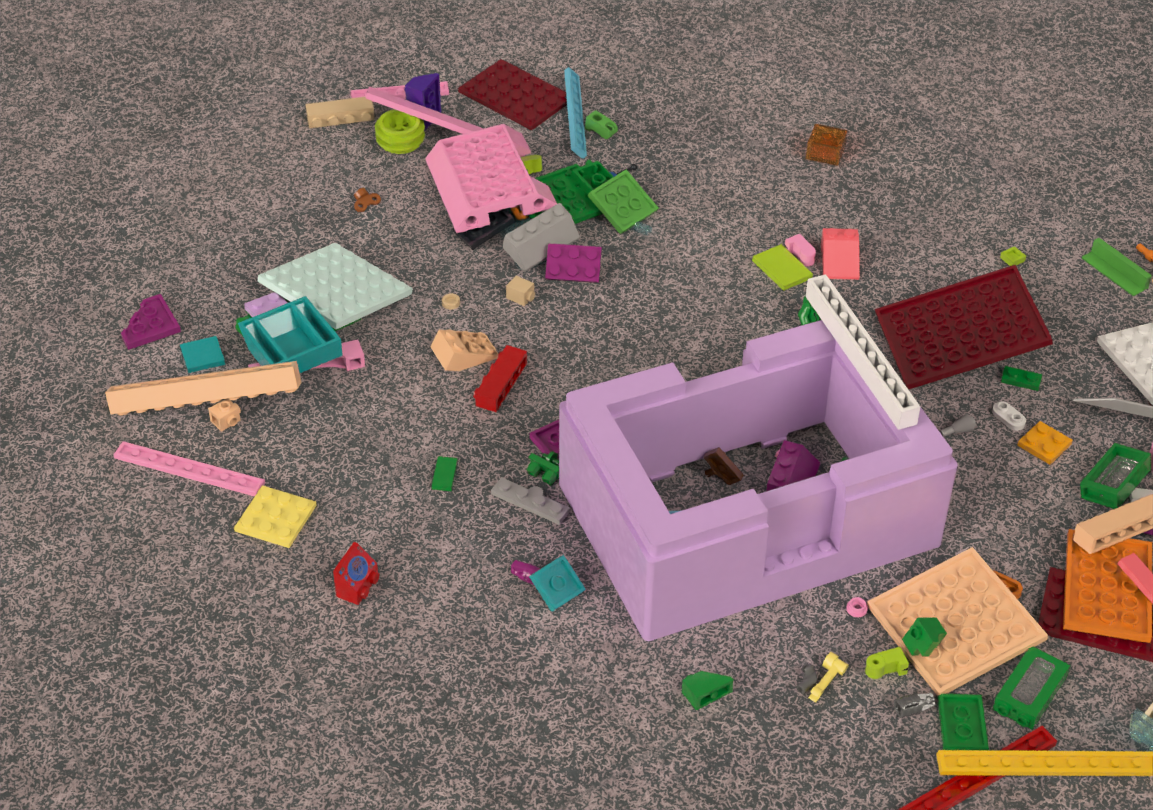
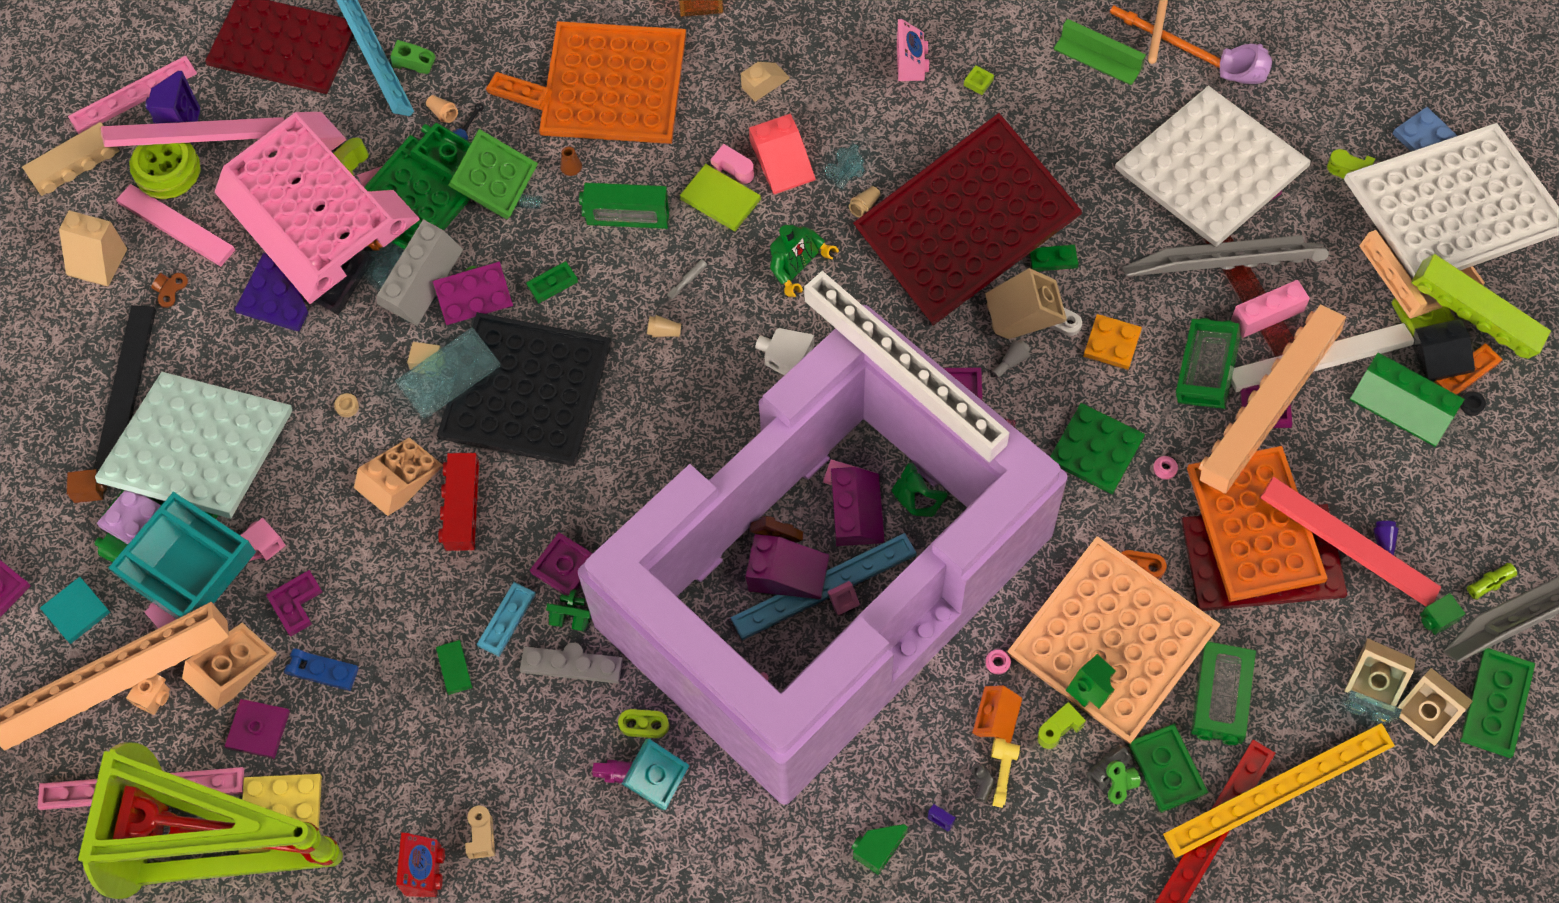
camera: 20 degrees left, 20 degrees up
(174, 456) = (130, 819): none -> lime piece
(248, 287) = (84, 487): none -> dark orange brick
(286, 417) = (227, 666): none -> light nougat slope
(287, 462) = (257, 728): none -> magenta plate
(313, 235) = (126, 379): none -> black tile
(326, 158) = (90, 248): none -> tan slope
(350, 394) = (288, 601): none -> magenta plate
(350, 443) = (322, 670): none -> blue plate
(389, 169) = (175, 225): none -> bright pink tile
(411, 576) = (482, 833): none -> tan leg
(432, 226) = (272, 297): none -> dark purple plate
(497, 458) = (506, 619): none -> medium azure tile
(531, 300) = (447, 373): none -> clear light blue plate
(565, 548) = (644, 721): none -> lime plate
(582, 330) = (536, 397): none -> black plate
(607, 159) = (443, 109): none -> light nougat cone
(633, 276) = (552, 282): none -> green plate
(666, 164) = (519, 90): none -> orange tile
(682, 212) = (570, 162): none -> dark orange cone
(700, 326) = (663, 327): none -> tan cone
(709, 246) = (625, 205): none -> green piece
(711, 484) = (786, 568): none -> magenta slope
(736, 305) = (688, 278): none -> light grey piece
(737, 180) = (614, 82): none -> orange plate
(763, 687) = (941, 817): none -> dark purple tile
(841, 639) = (997, 713): none -> orange panel
(846, 208) = (762, 79): none -> tan slope
(886, 275) = (848, 166): none -> clear light blue hips
(888, 298) = (864, 201): none -> tan cone
(920, 714) = (1122, 780): none -> bright green piece
(967, 223) = (911, 52): none -> bright pink slope
(984, 393) = (1025, 304): none -> tan slope
(1000, 503) = (1097, 448): none -> green plate
(1051, 532) = (1165, 473): none -> bright pink plate

